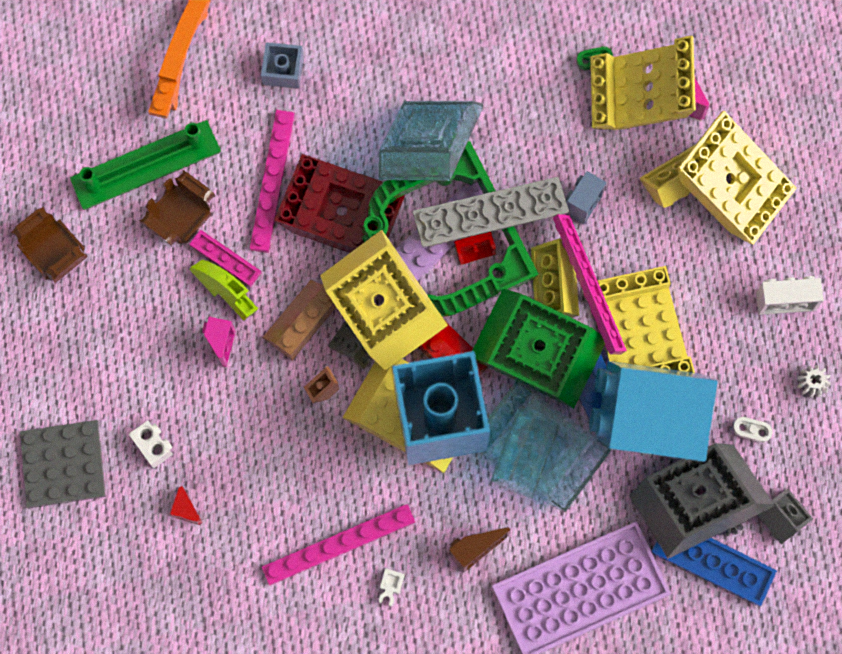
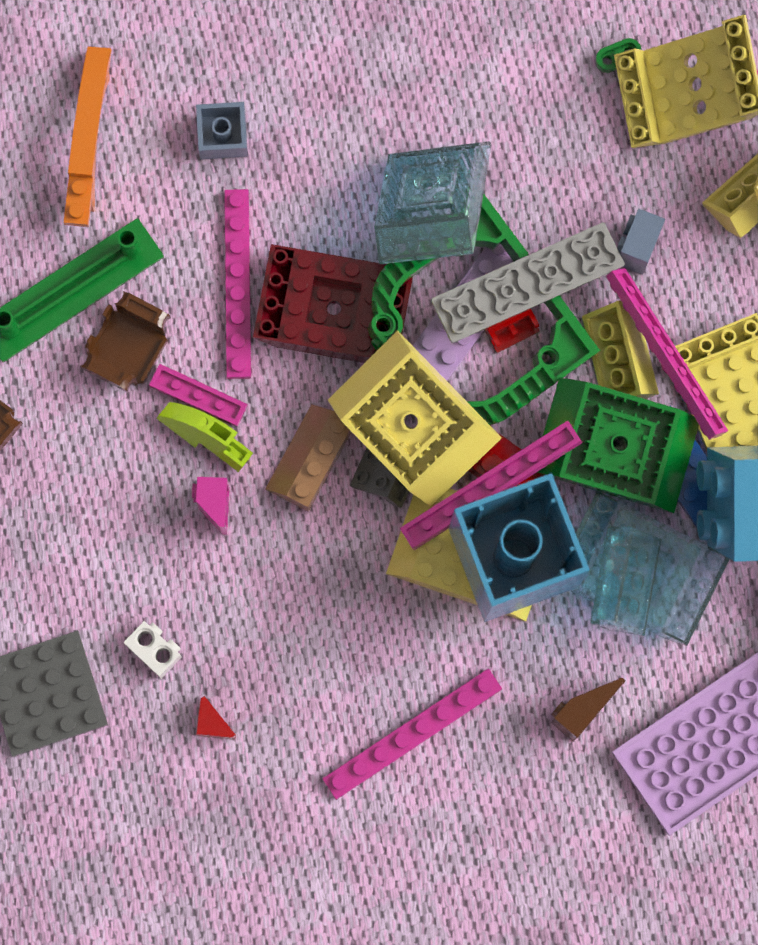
camera: 15 degrees left, 5 degrees up
(322, 386) = (355, 539): nougat slope -> none
(391, 583) = (487, 770): white plate -> none
(475, 341) = (498, 479): none -> dark pink plate

